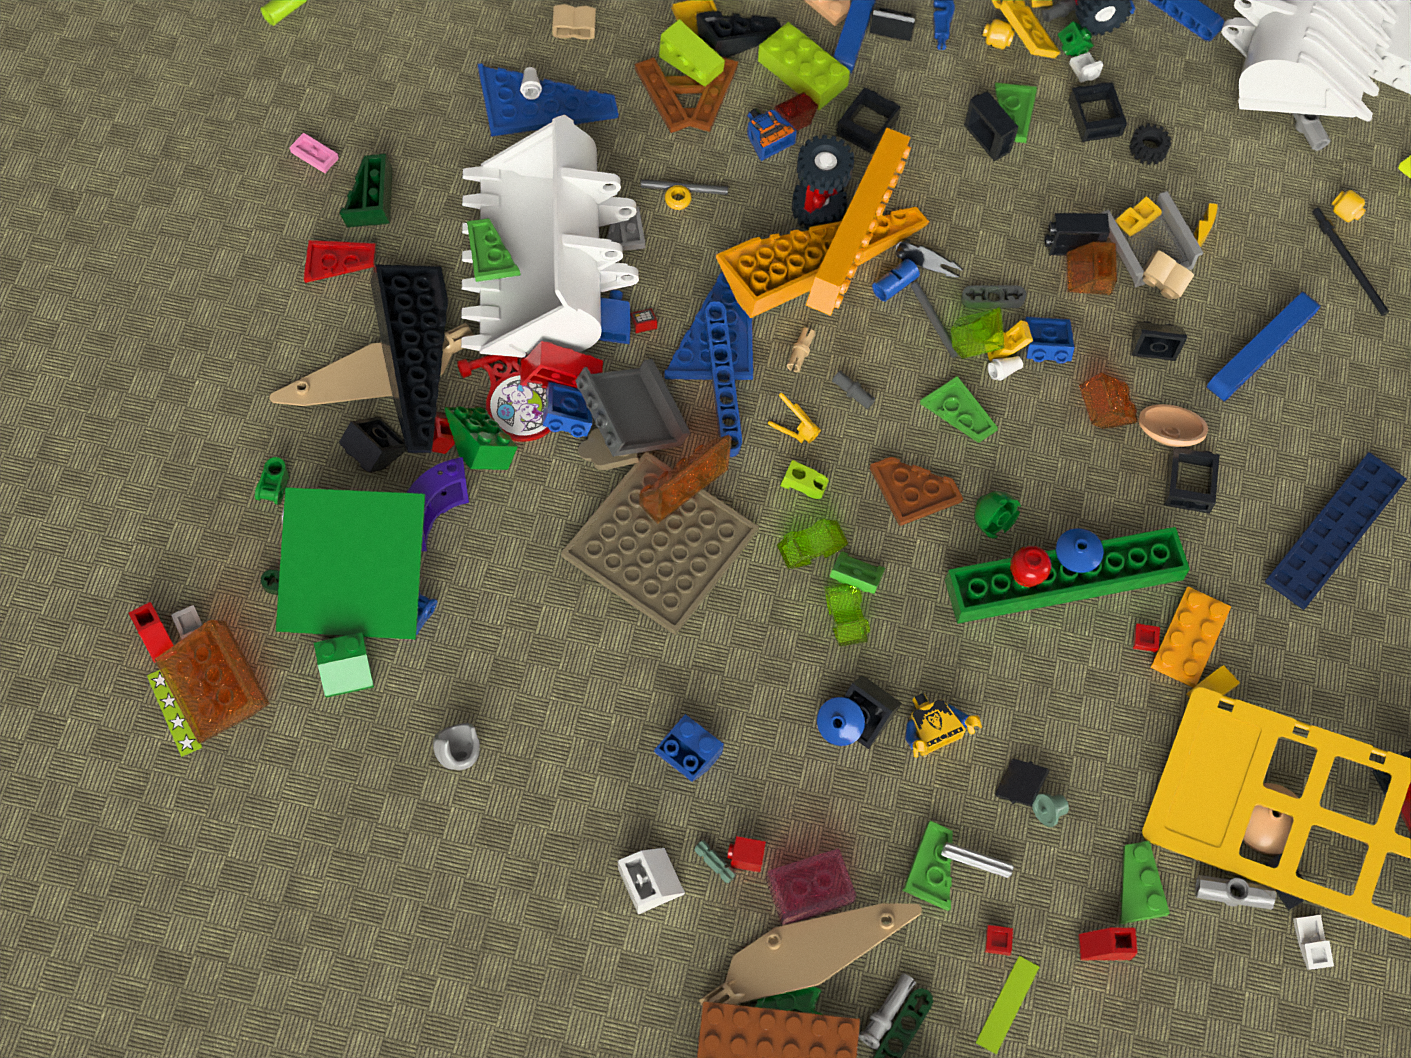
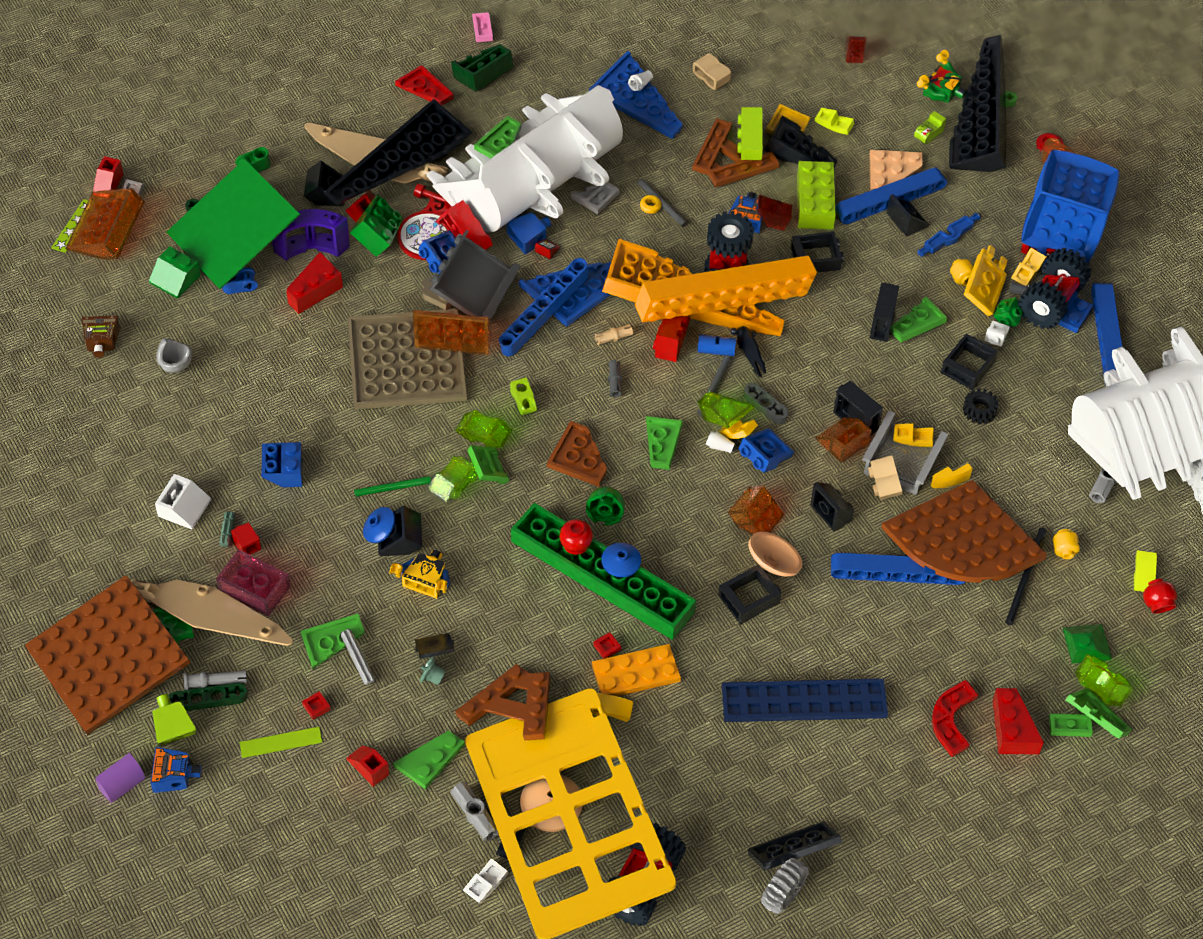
camera: 50 degrees right, 10 degrees down
(353, 795) = (100, 333): none -> reddish brown torso
(490, 547) = (314, 284): none -> red wedge
(799, 674) = (392, 486): none -> green bar
(807, 429) = (560, 375): yellow plant -> none
(858, 311) = (670, 337): none -> red wedge
(1175, 759) = (494, 701): none -> dark orange plate
(1279, 271) = (964, 537): none -> dark orange plate

